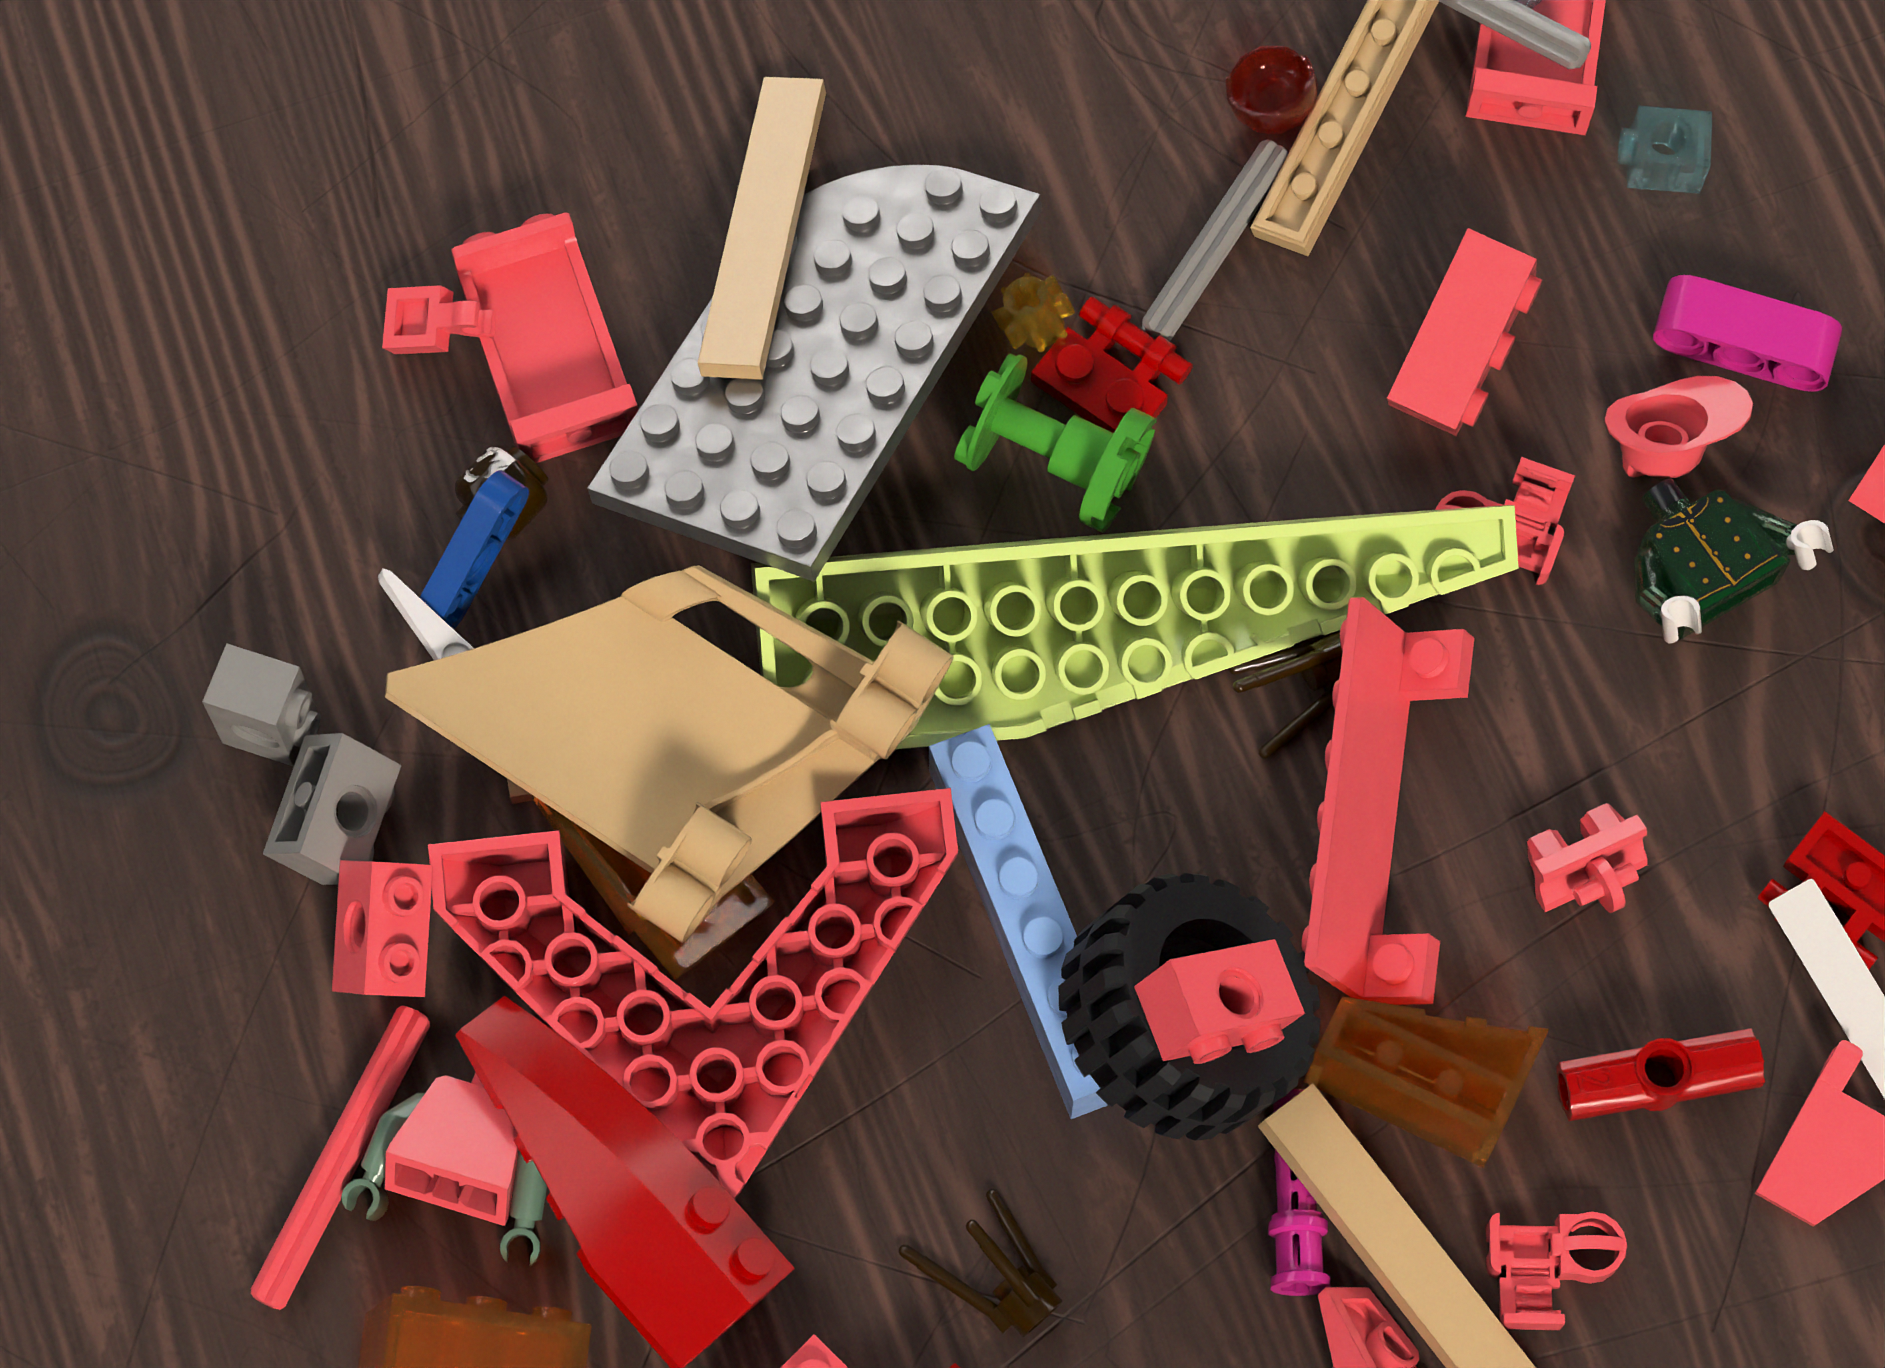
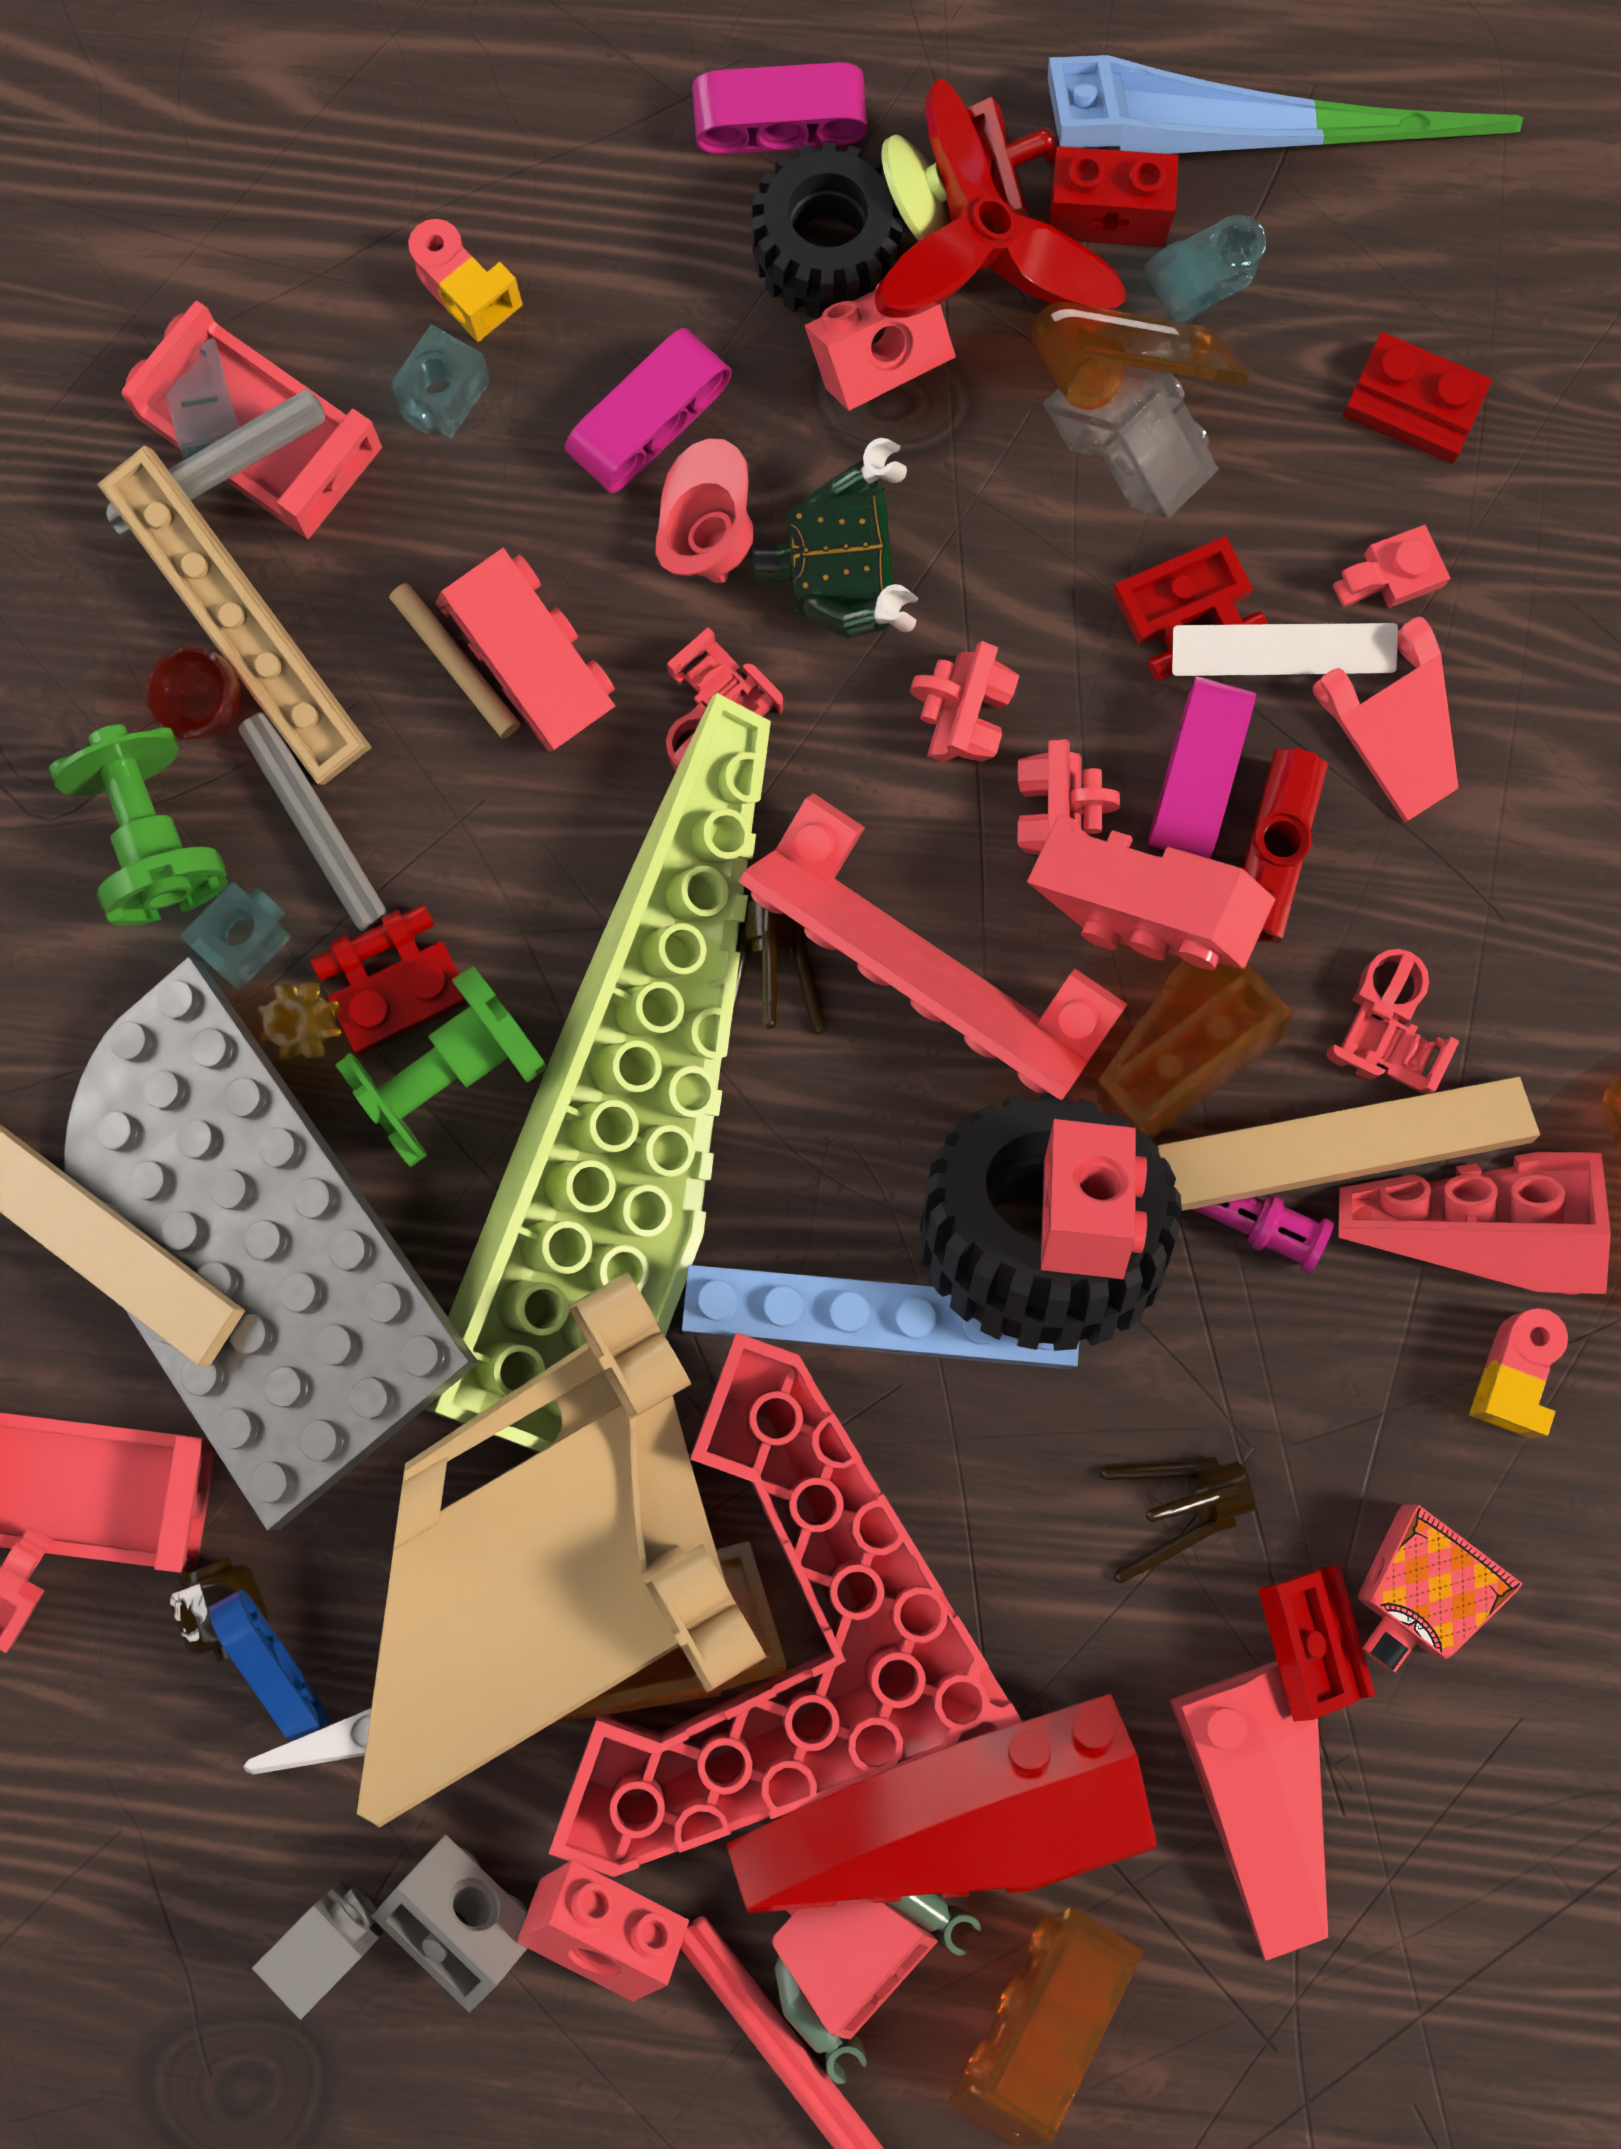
camera: 65 degrees left, 10 degrees up
(1074, 204) = (210, 930): none -> clear light blue brick
(1103, 129) = (147, 845): none -> bright green piece
(1425, 286) = (454, 660): none -> tan bar
(1532, 961) = (1151, 902): none -> coral wedge
(1664, 732) = (954, 701): none -> coral hips
(1694, 972) = (1202, 767): none -> dark pink beam
(1779, 103) = (459, 282): none -> leg

